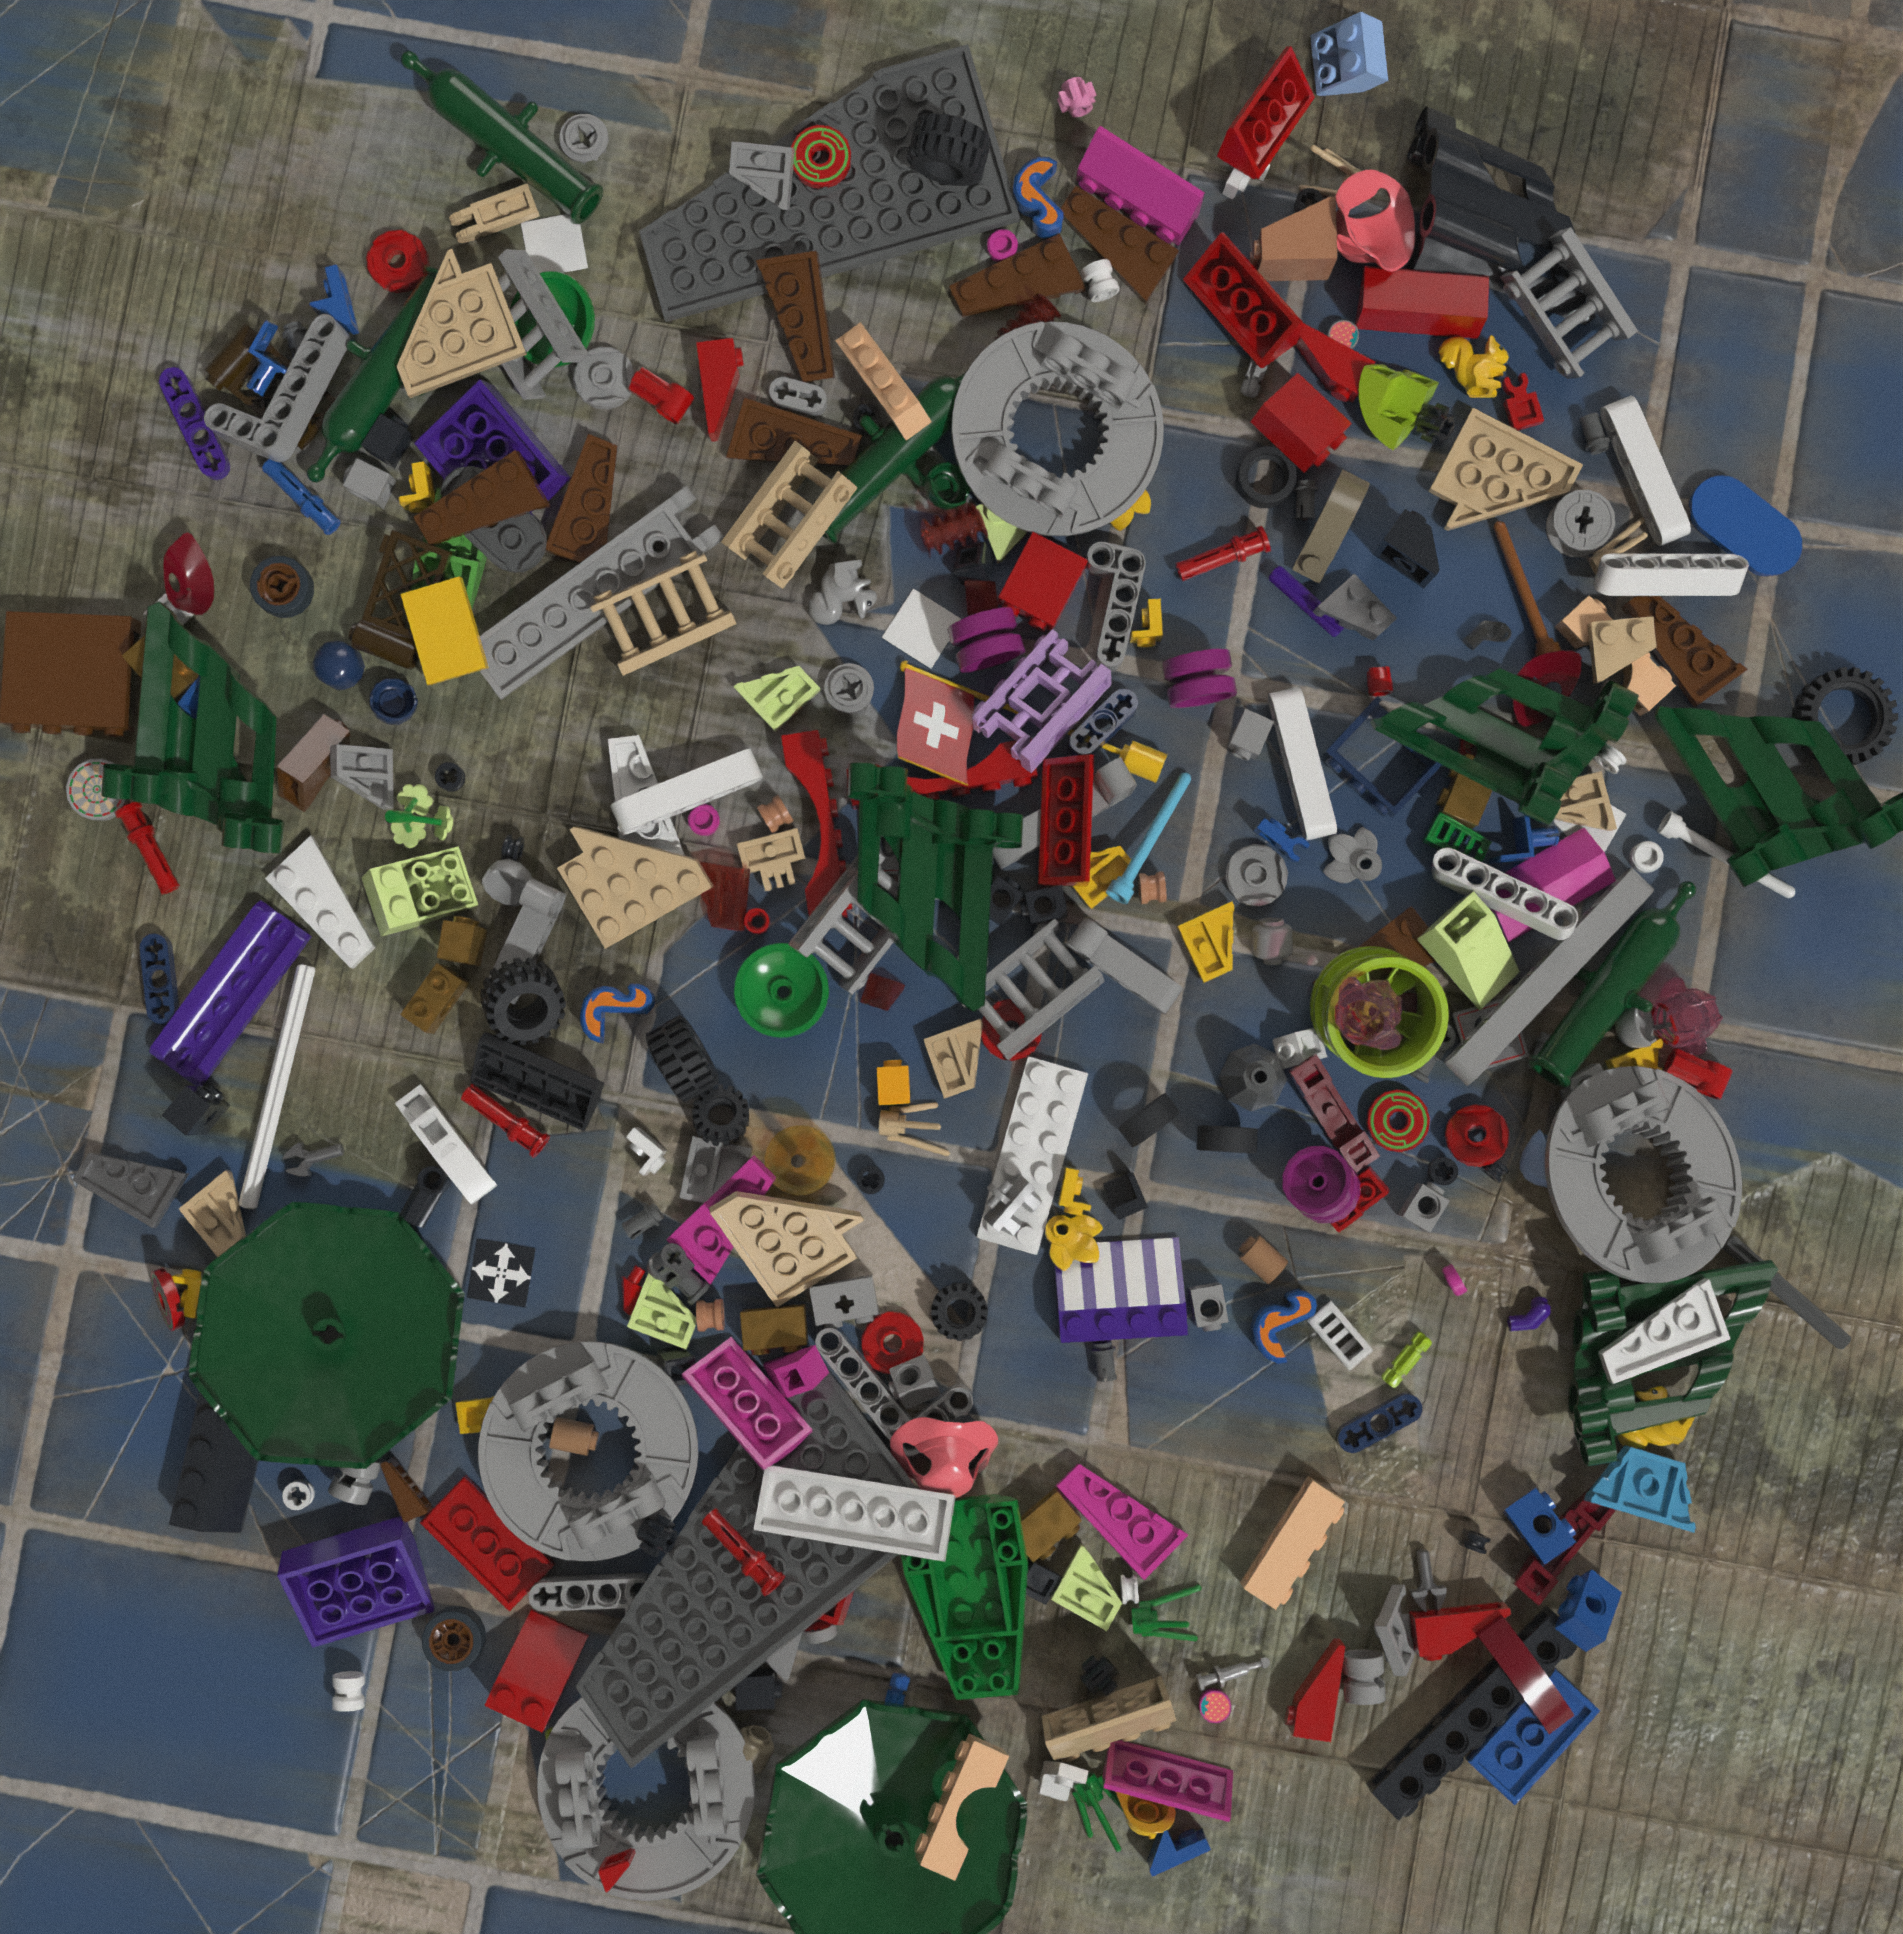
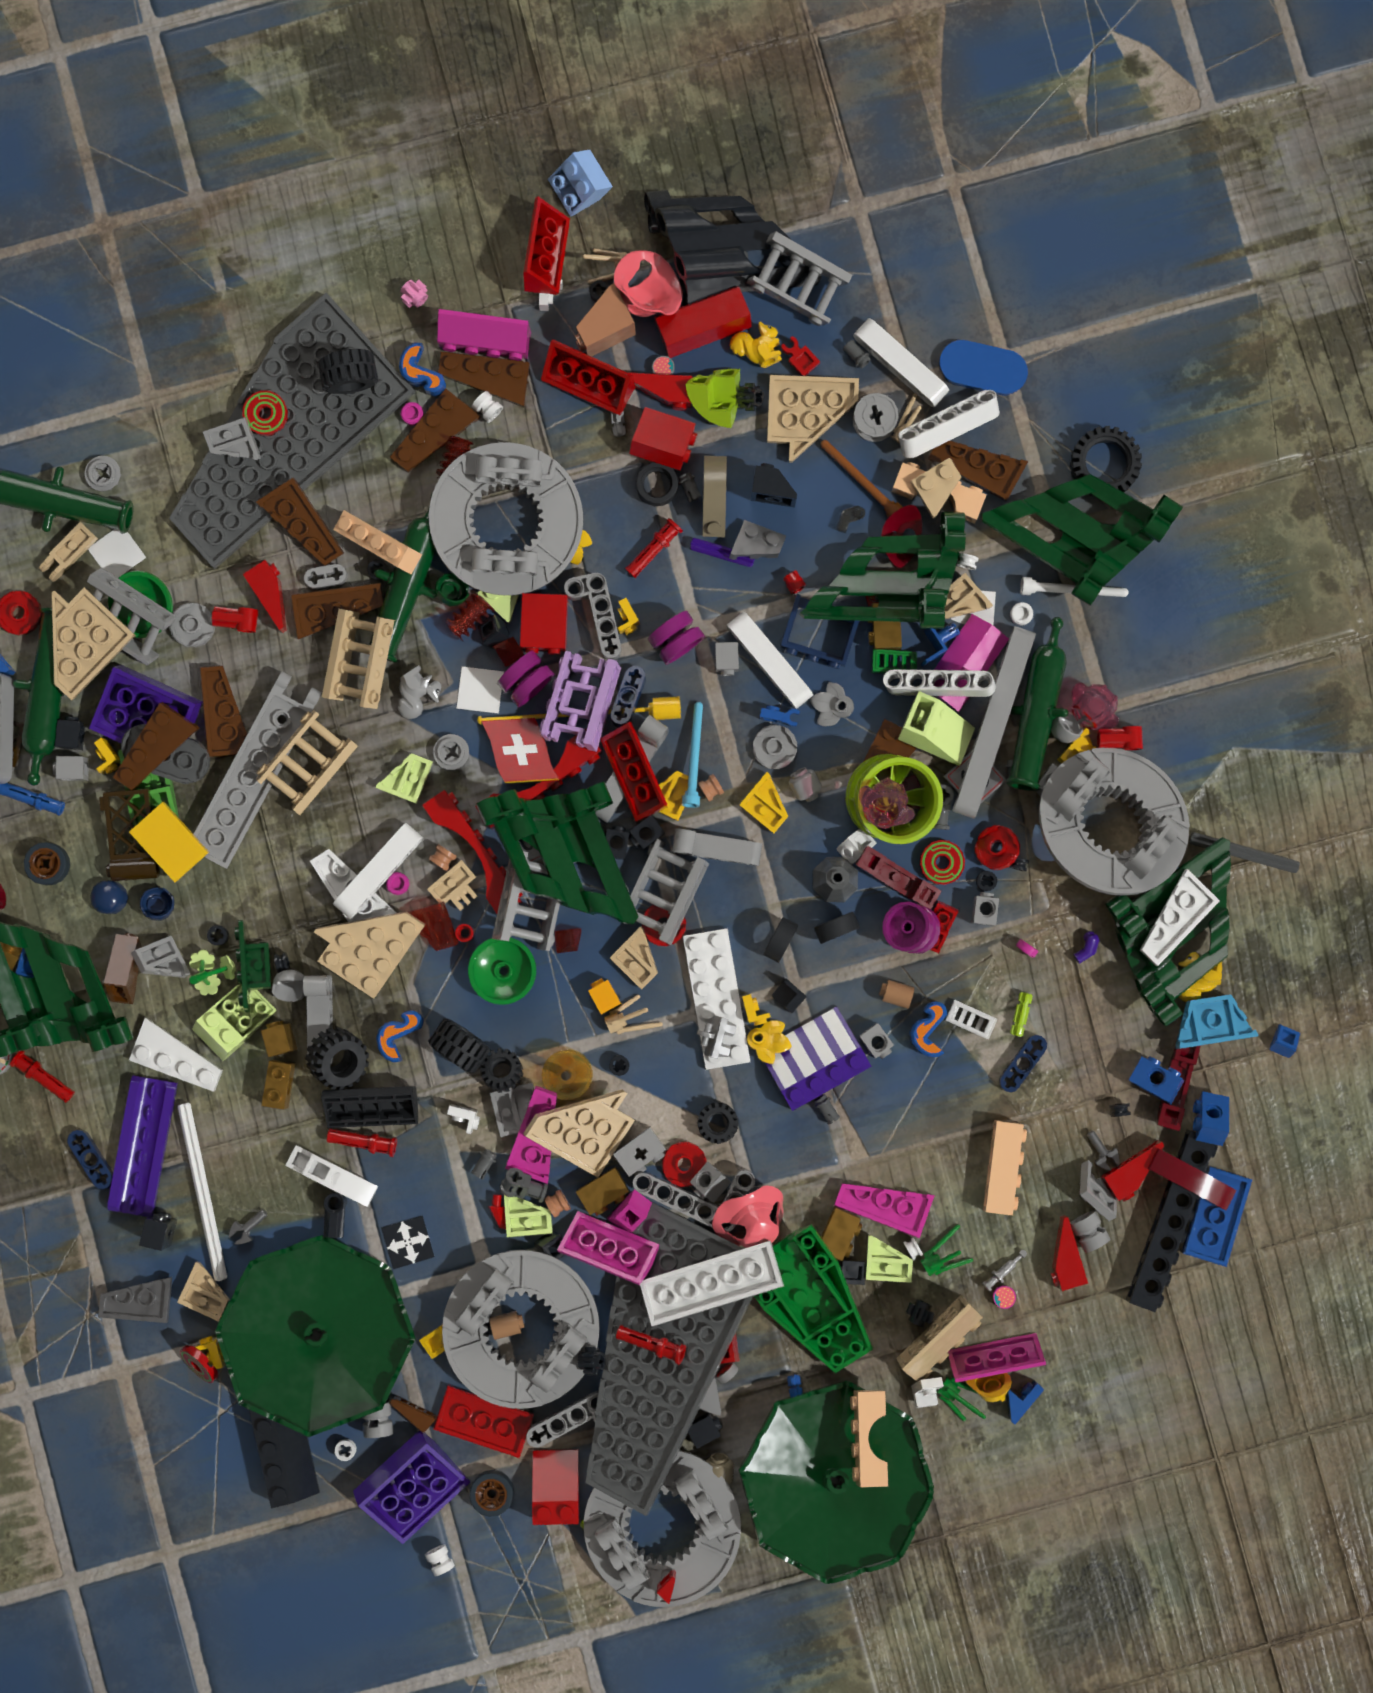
camera: 25 degrees left, 0 degrees up
(476, 835) = (255, 966): none -> dark green bracket
(1724, 1555) = (1285, 1041): none -> blue slope

